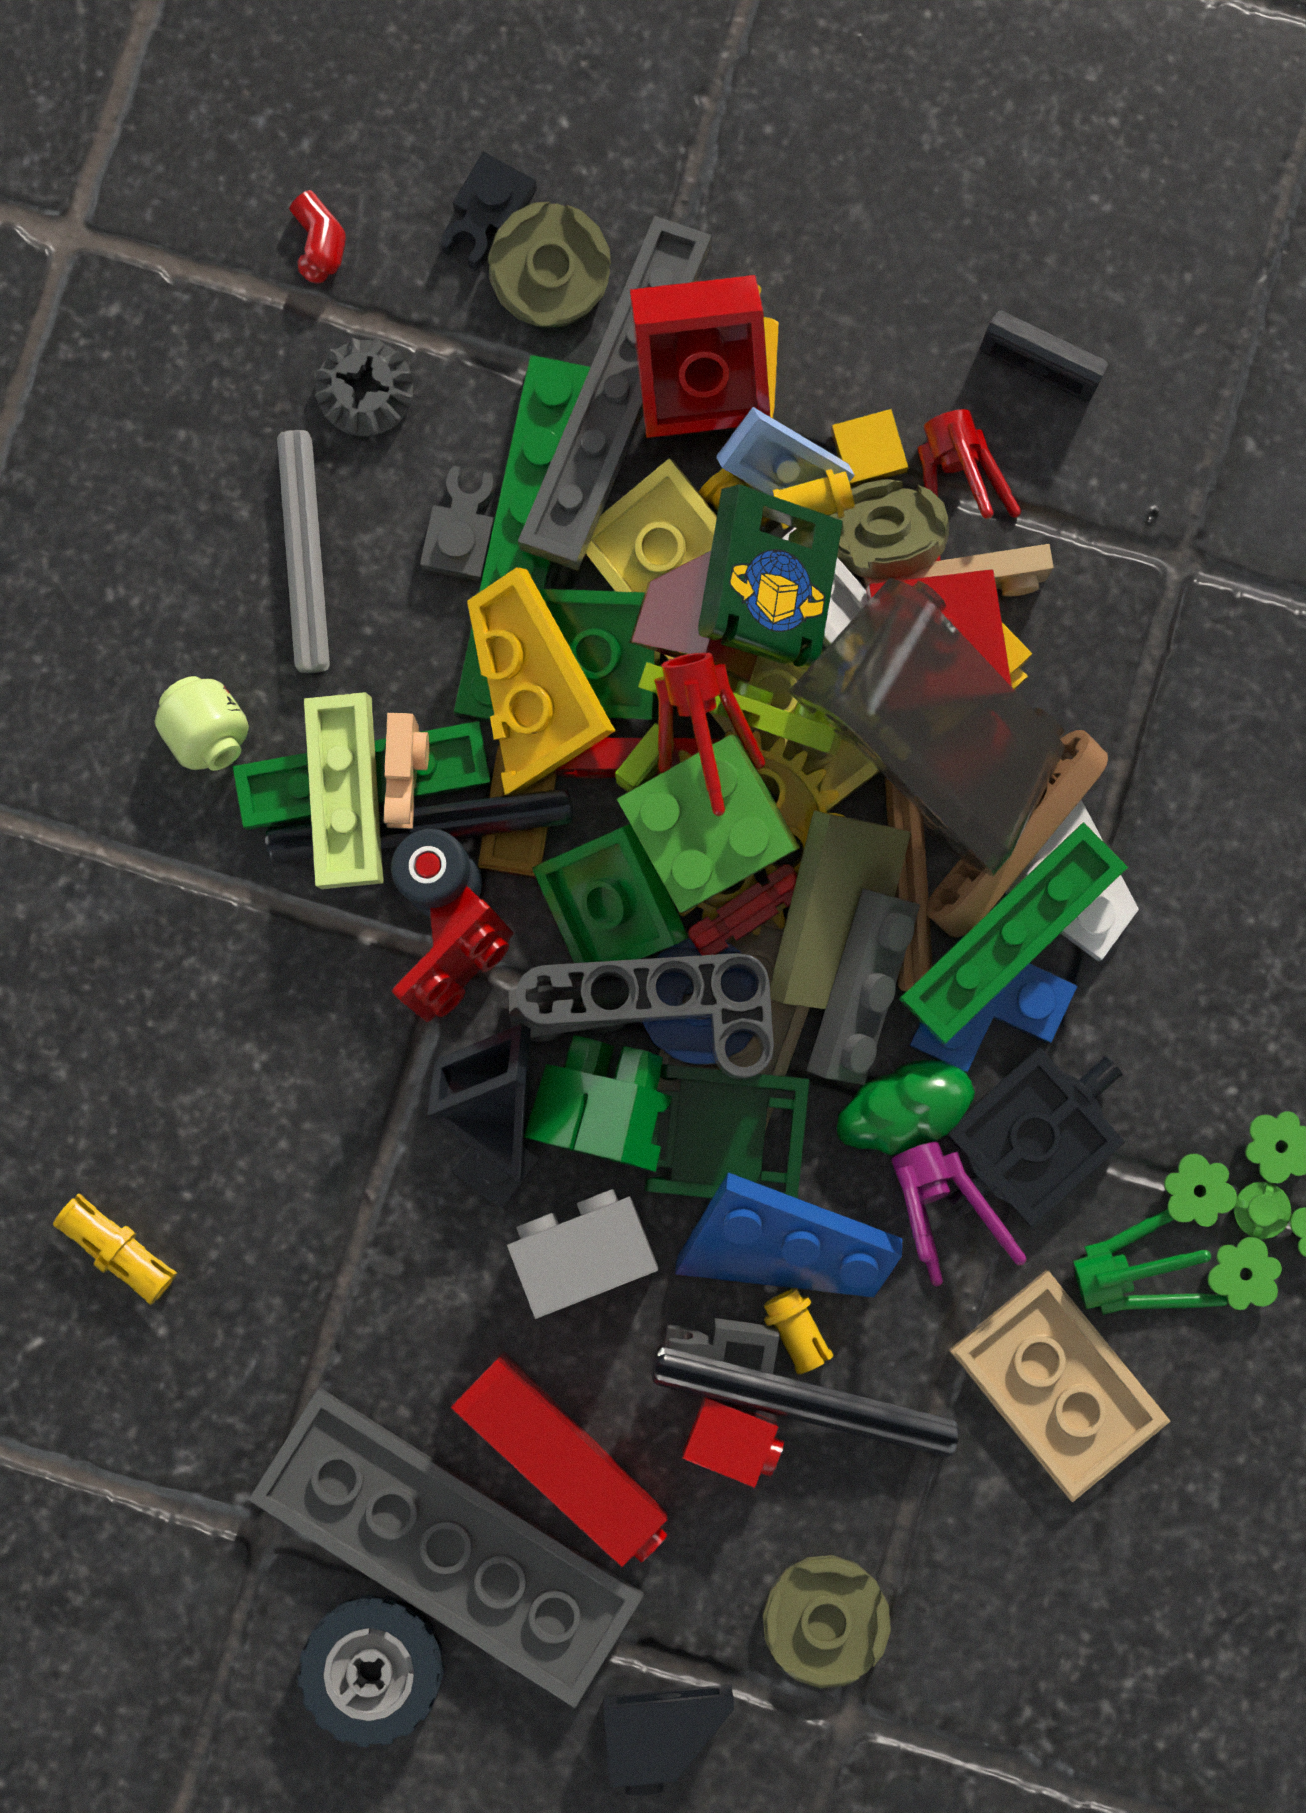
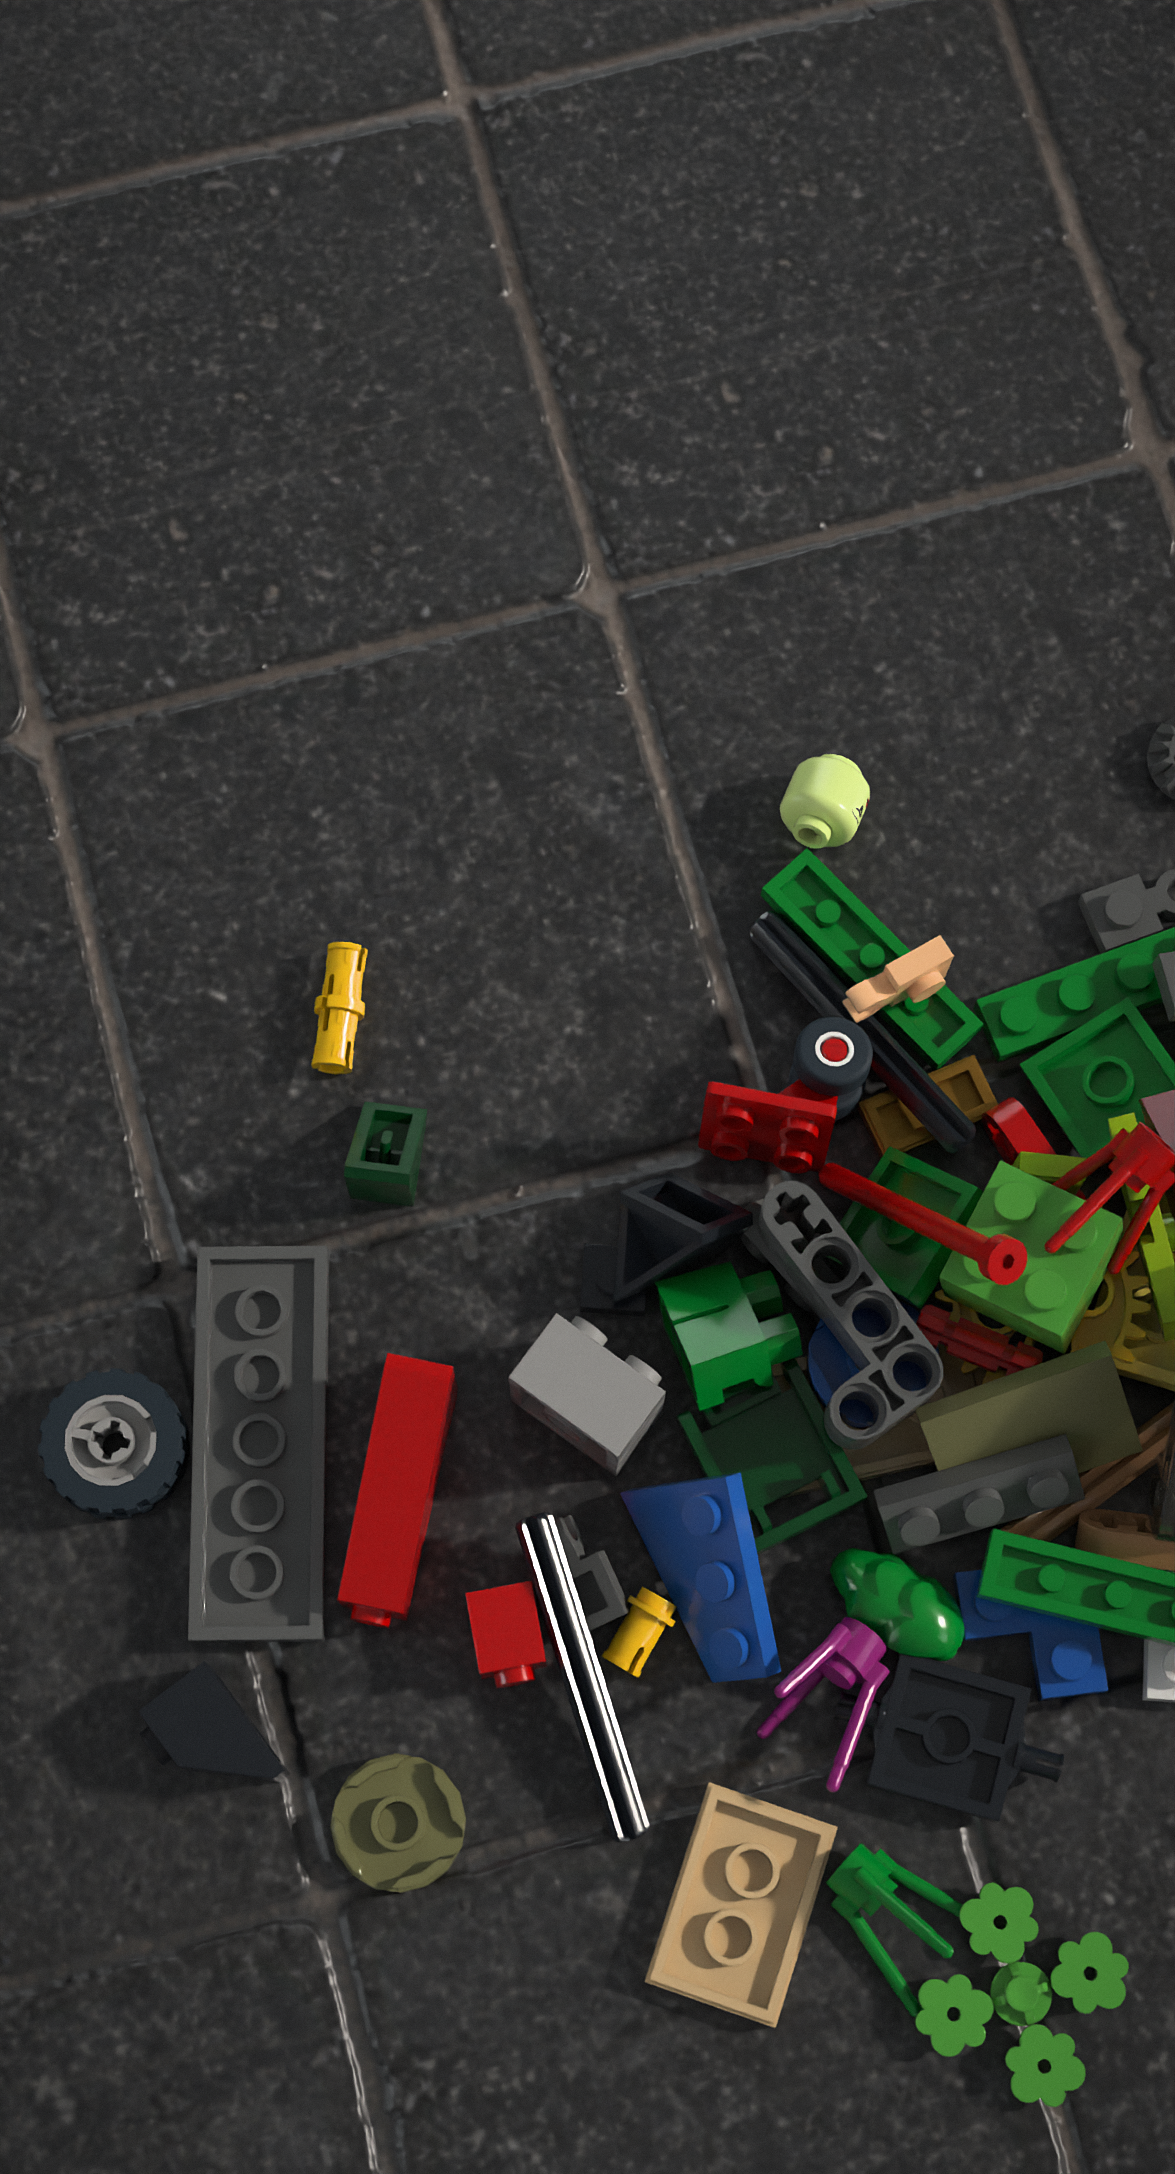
camera: 55 degrees right, 10 degrees down
(266, 1288) = (386, 1154): none -> dark green slope
(303, 551) = (1024, 795): light grey axle -> none
(343, 791) = (848, 945): yellowish green plate -> none
(535, 684) = (1050, 1045): yellow wing -> none
(705, 862) = (998, 1257): none -> red bar

